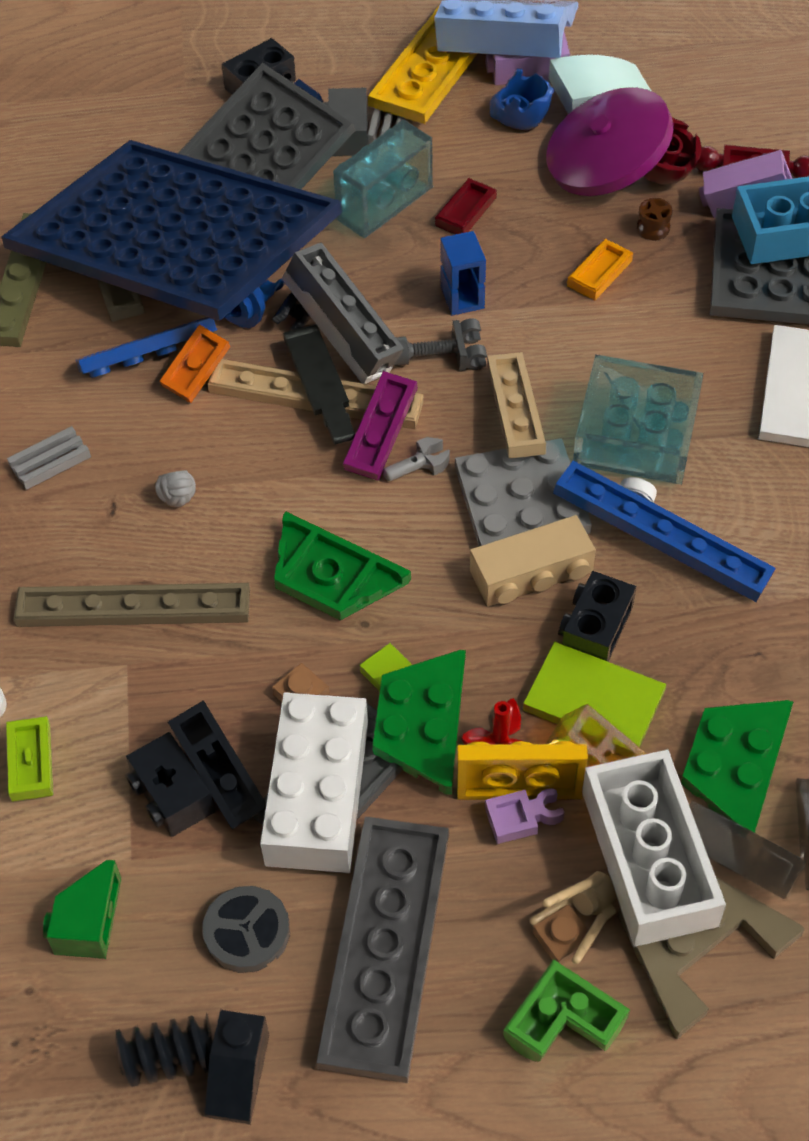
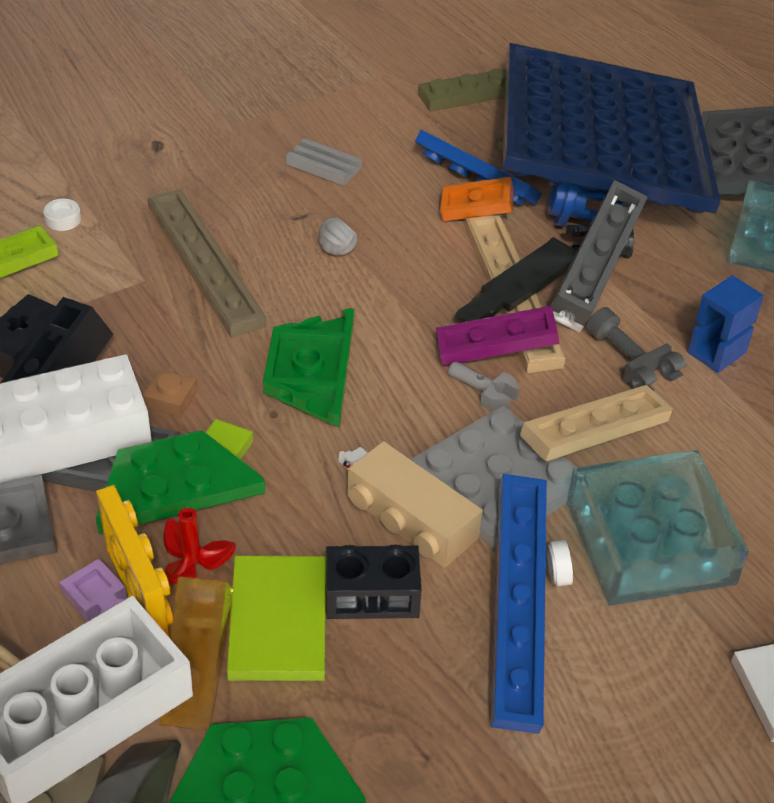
camera: 60 degrees right, 10 degrees down
(453, 585) = (349, 458): none -> white piece

